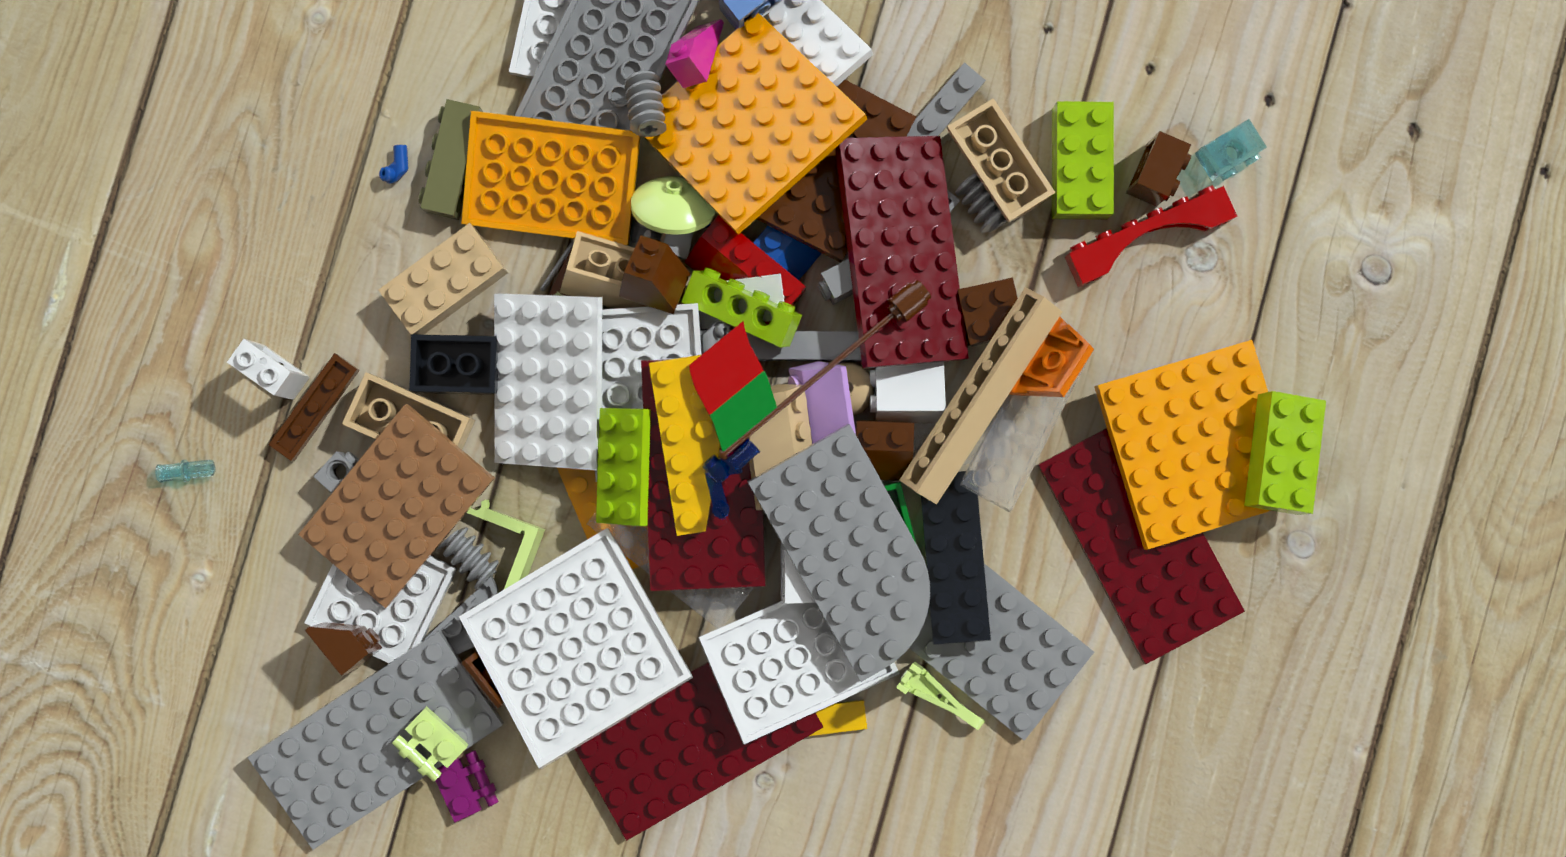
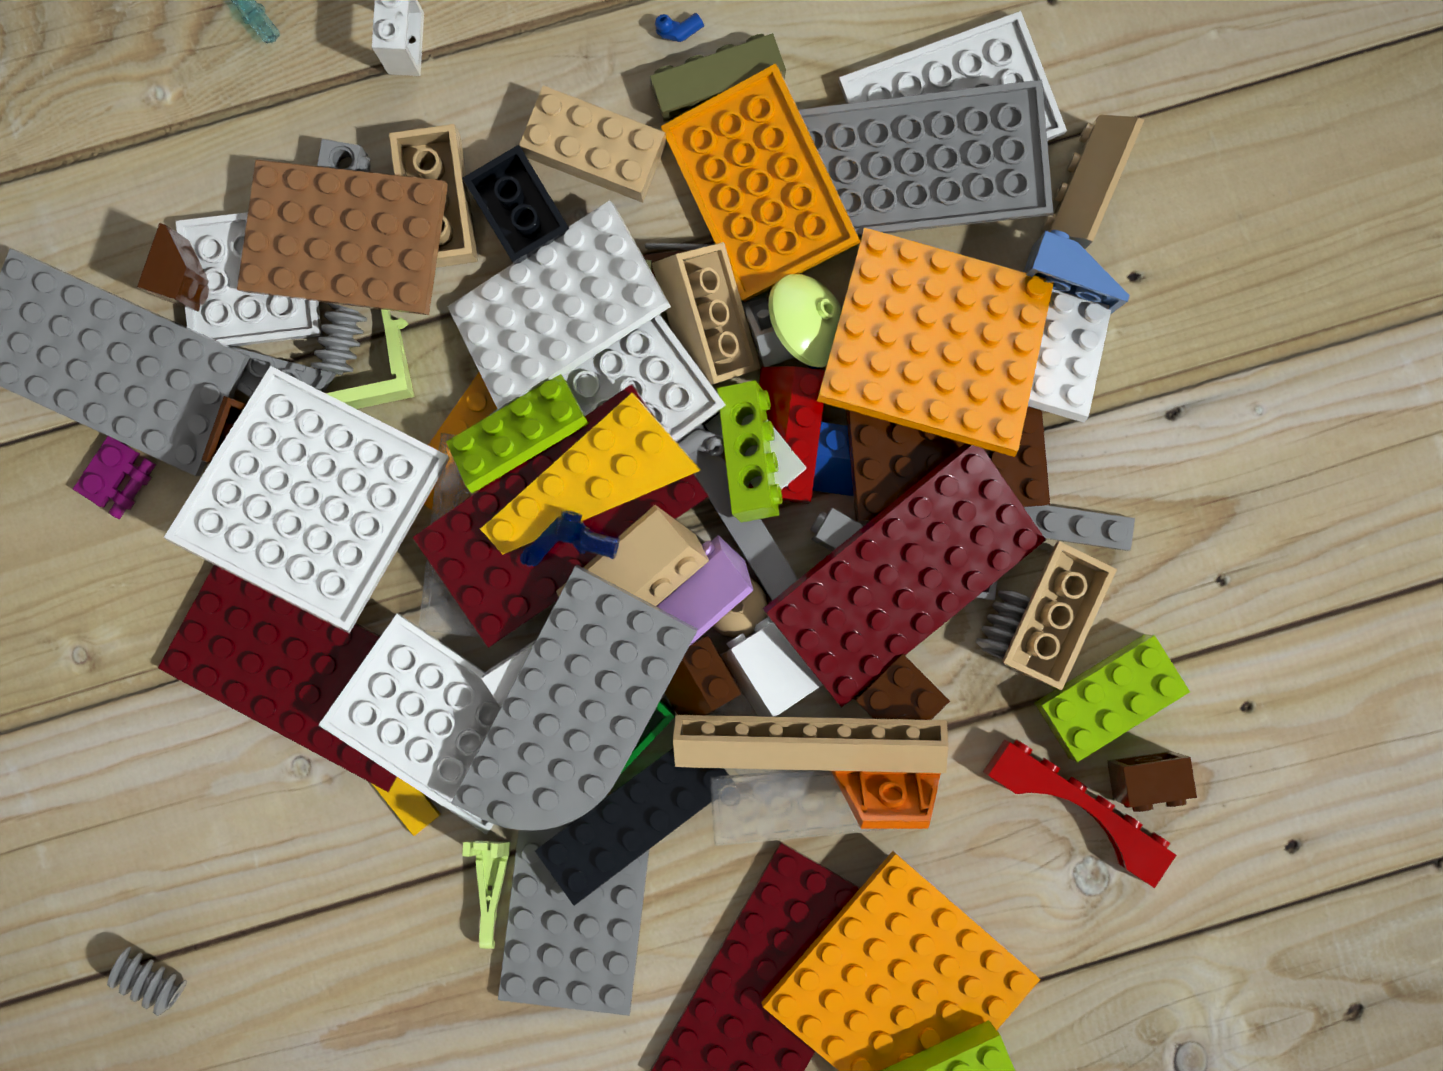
camera: 55 degrees right, 0 degrees up
(314, 407) = (391, 98): reddish brown plate -> none
(436, 738) = (140, 417): yellowish green plate -> none
(645, 104) = (889, 228): light grey piece -> none
(654, 276) = (724, 345): reddish brown slope -> none
(693, 54) = (968, 245): dark pink slope -> none
(738, 389) = (662, 496): flag -> none
(1243, 139) = (1235, 847): clear light blue brick -> none

